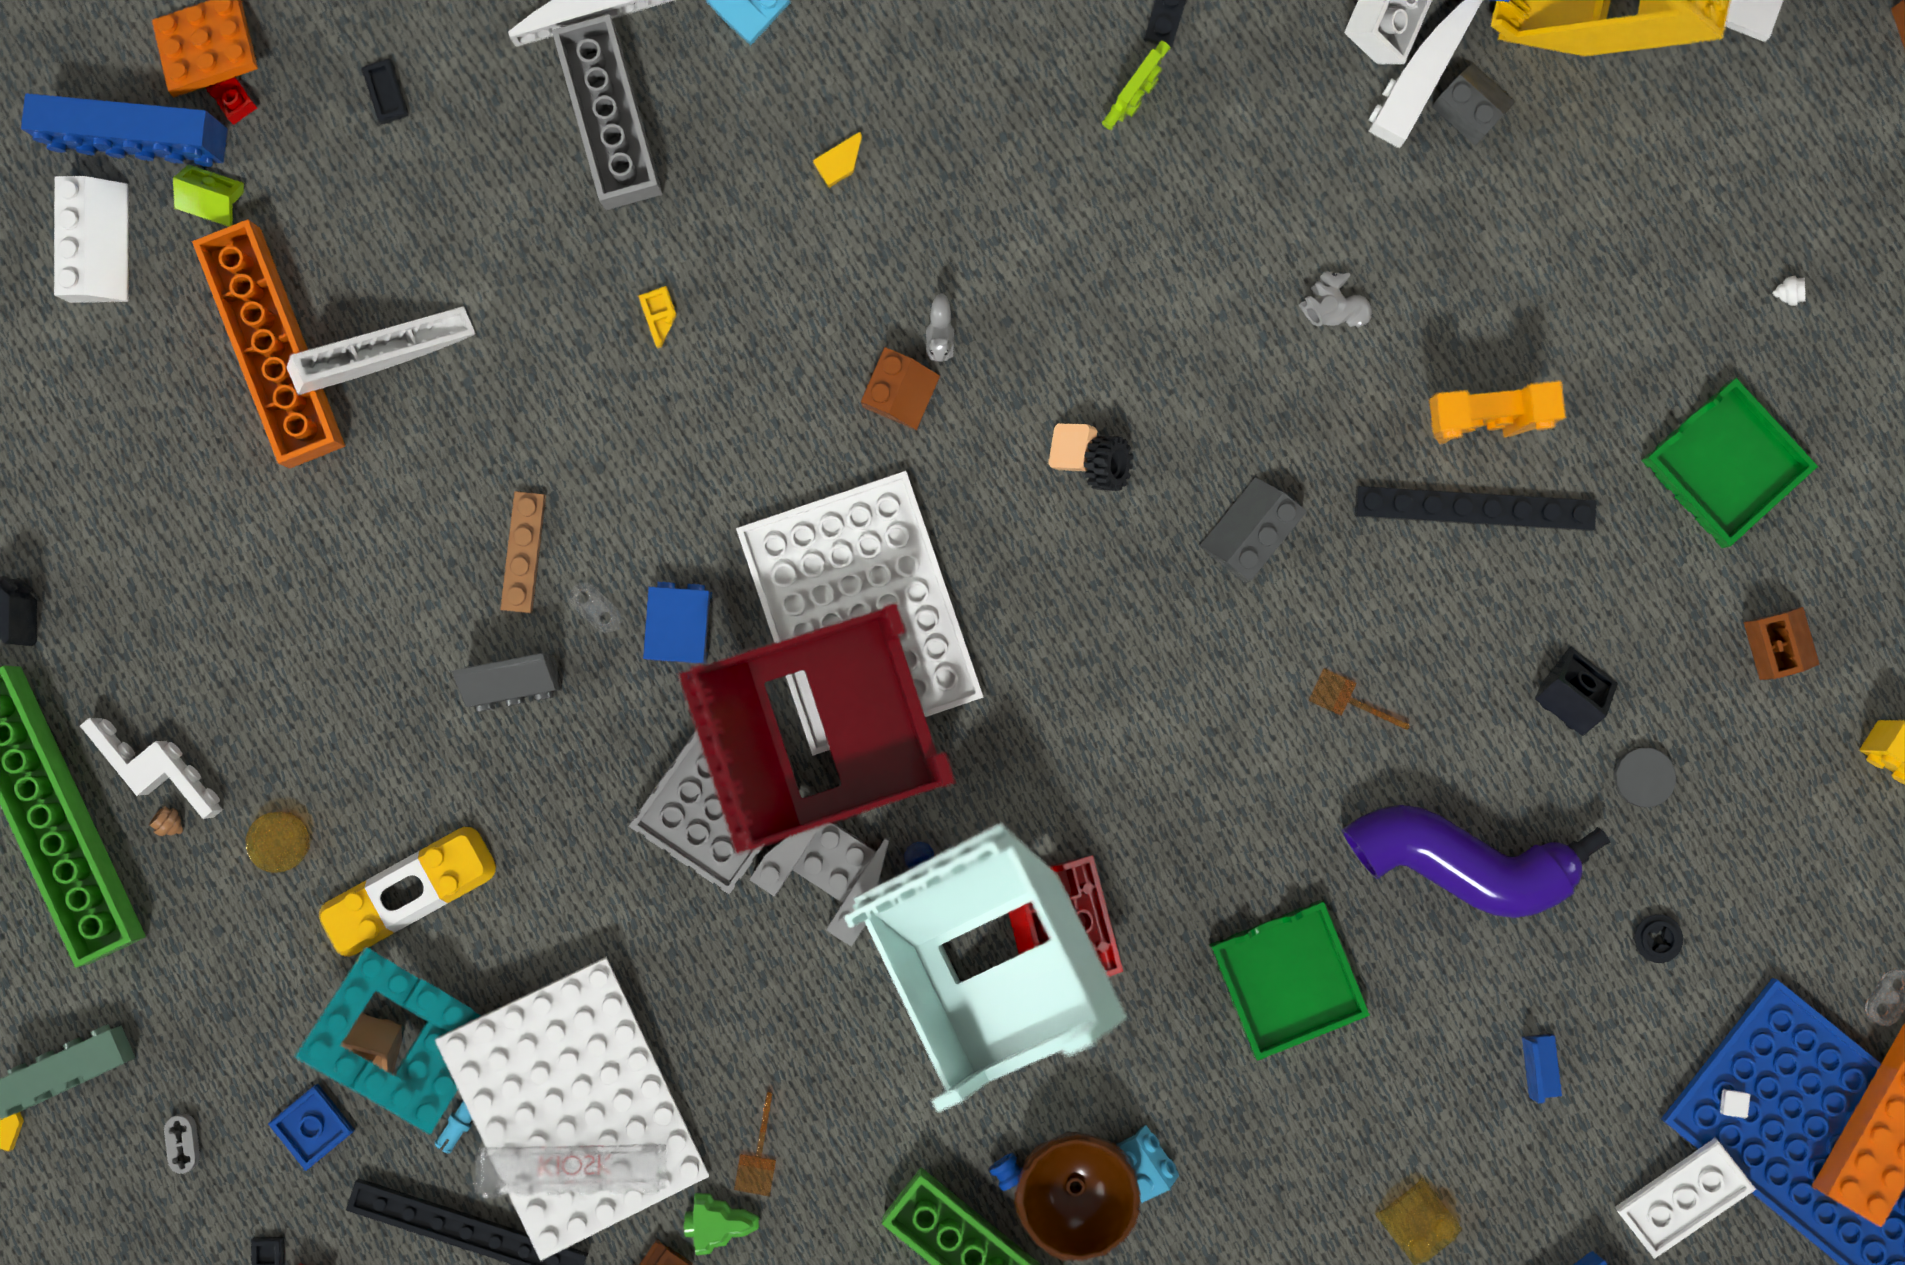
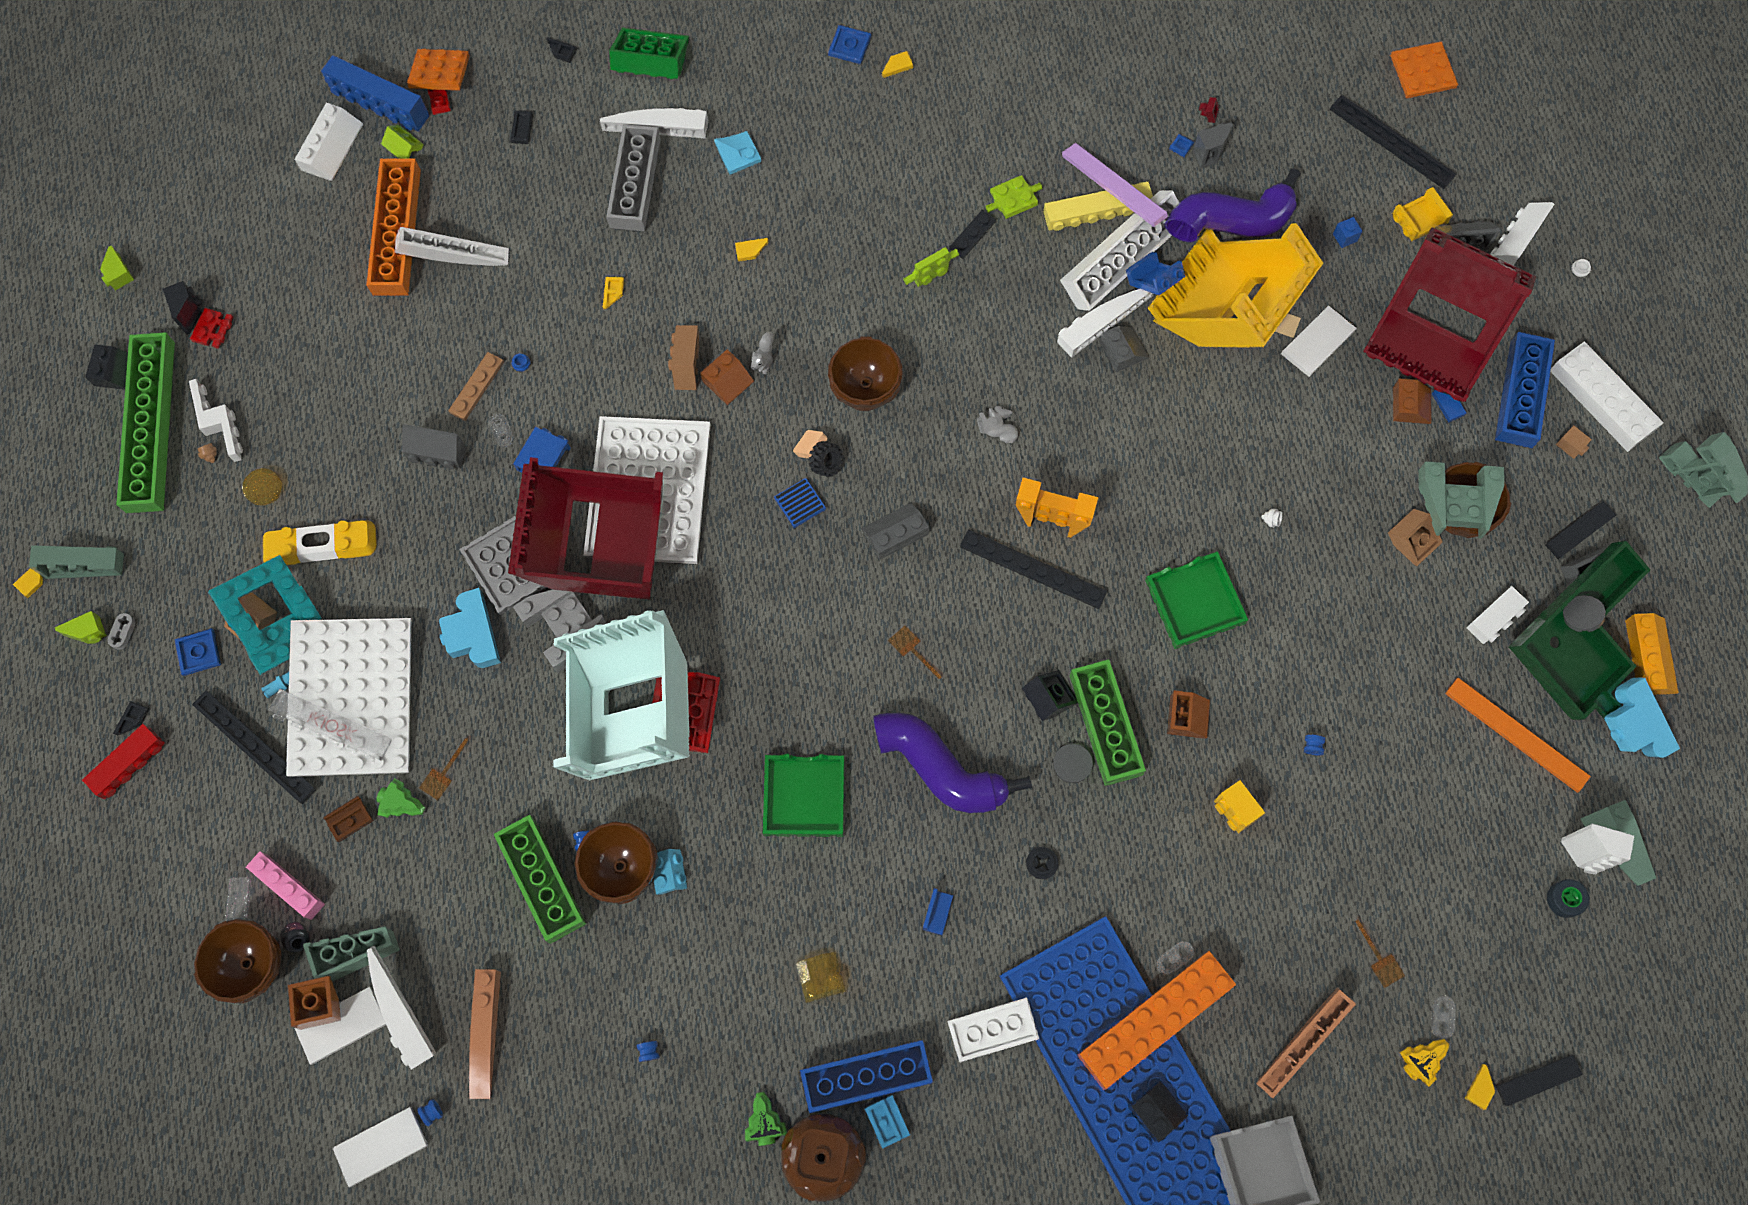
camera: 25 degrees right, 15 degrees down
(58, 622) = (207, 326): none -> red plate
(125, 1165) = (84, 628): none -> lime slope
(573, 487) = (520, 362): none -> blue plate
(700, 935) = (470, 630): none -> medium azure brick
(822, 380) = (684, 357): none -> medium nougat wedge
(1093, 543) = (799, 503): none -> tile
(1118, 282) = (865, 362): none -> reddish brown rock
(1676, 702) = (1107, 723): none -> bright green brick
(1735, 1103) = (1048, 981): white piece -> none

